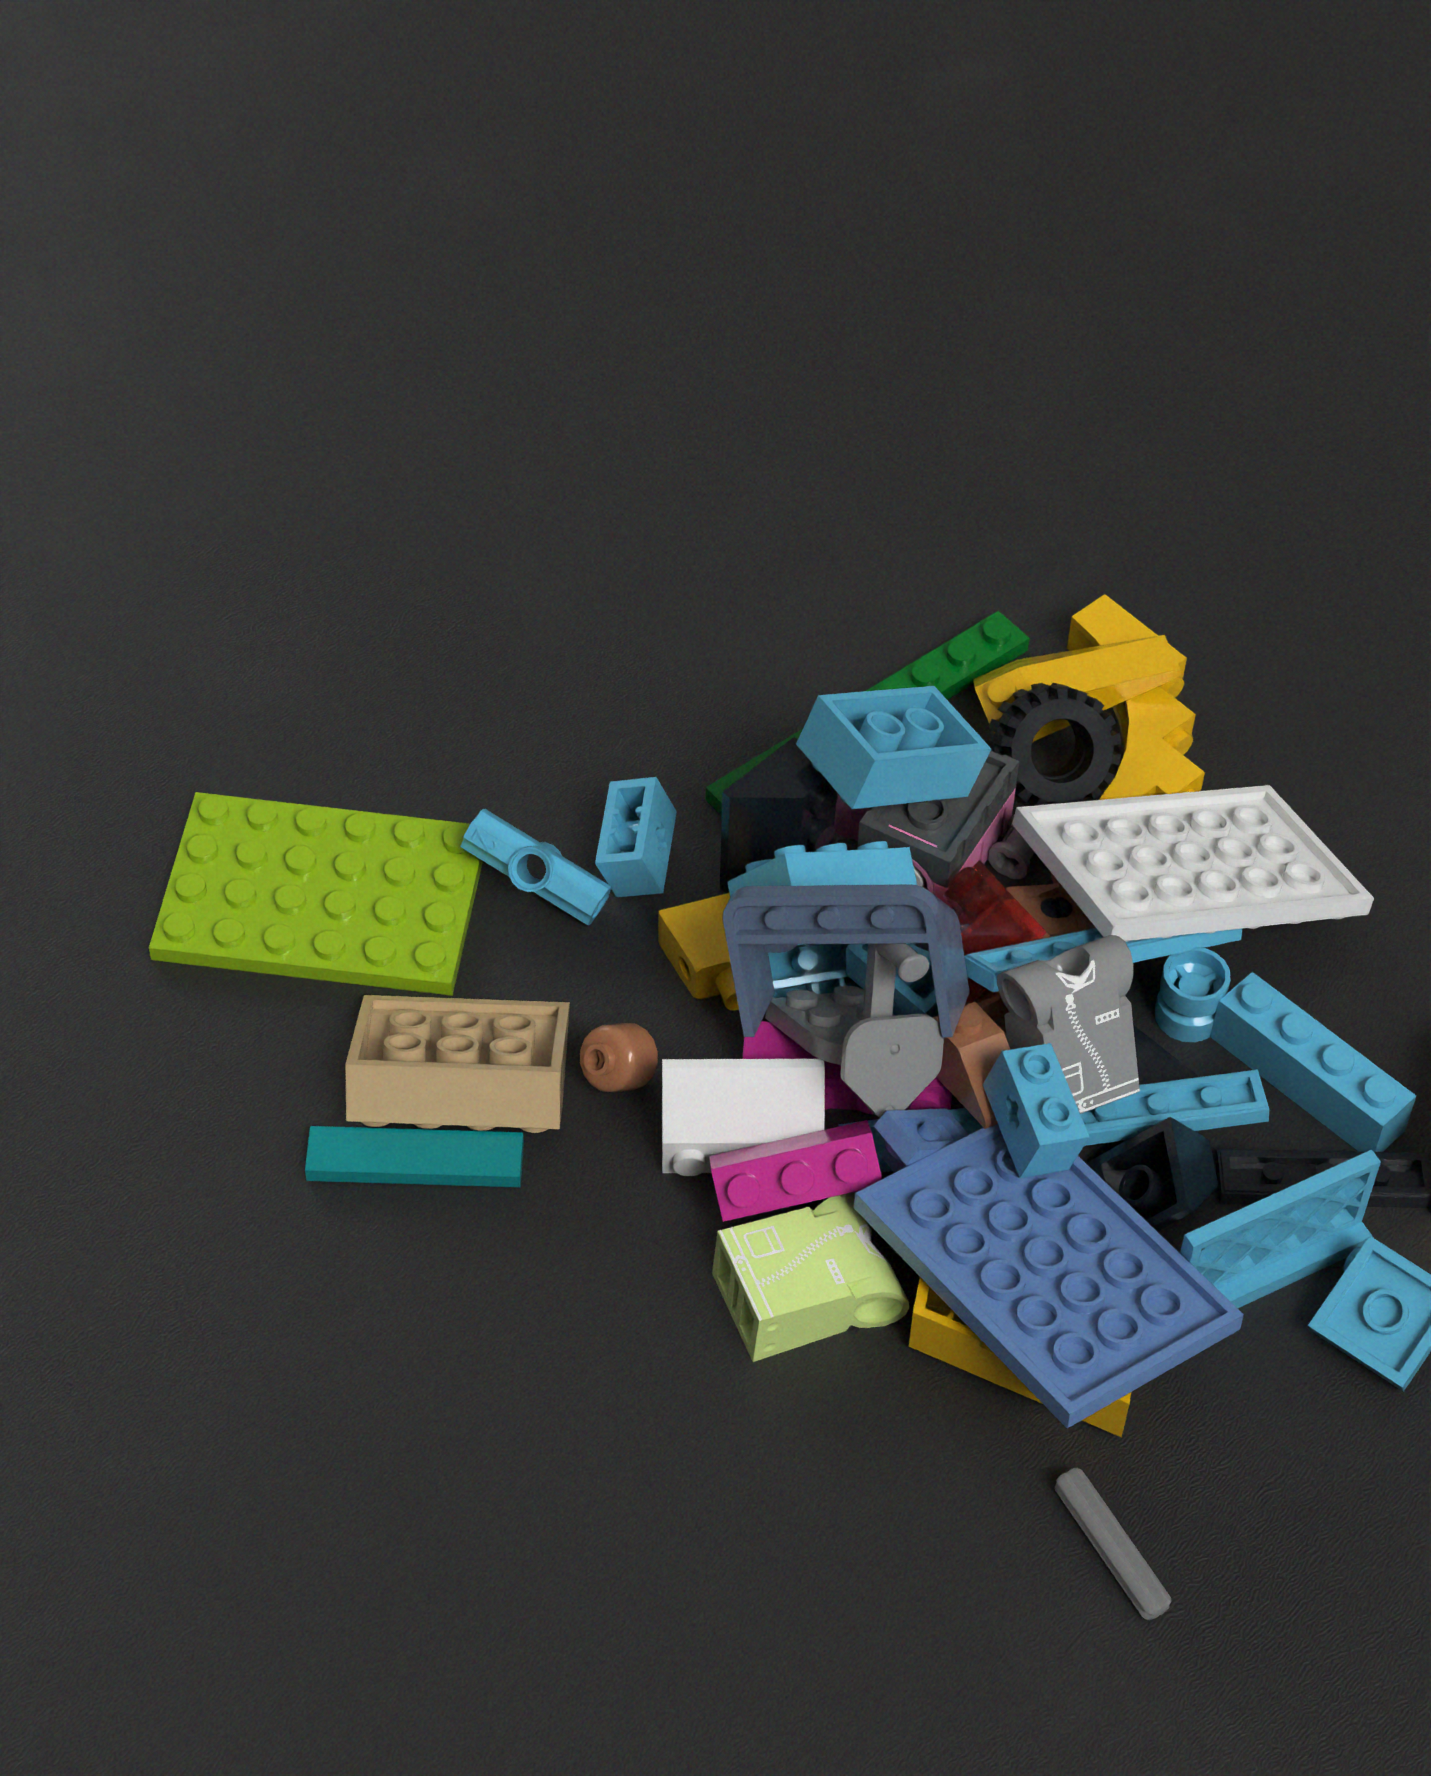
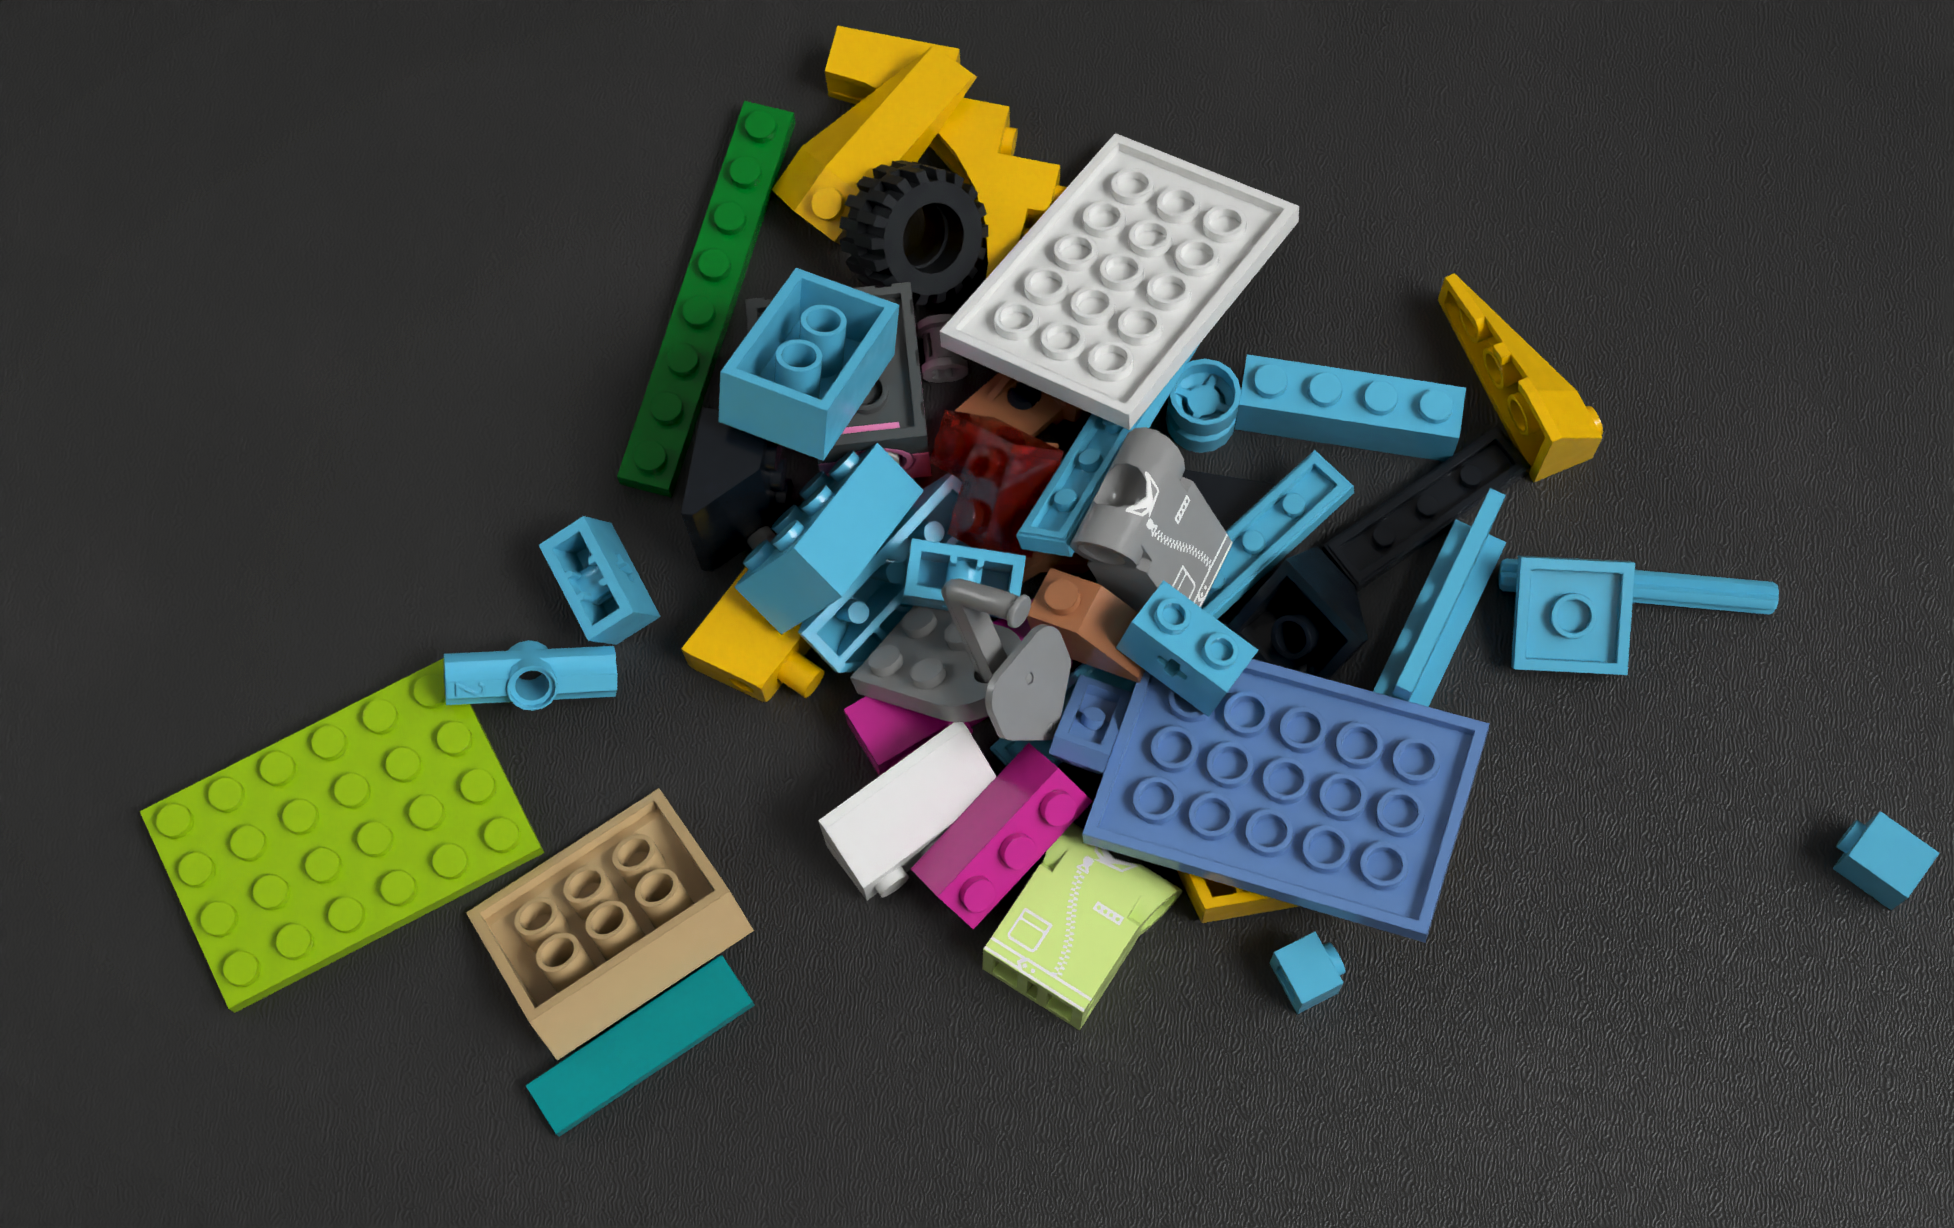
camera: 30 degrees left, 20 degrees up
(618, 1057) = (754, 822): nougat head -> none
(781, 917) = (910, 597): sand blue windscreen -> none
(966, 1427) = (1308, 971): none -> medium azure plate
(1113, 1544) = (1496, 989): light grey axle -> none

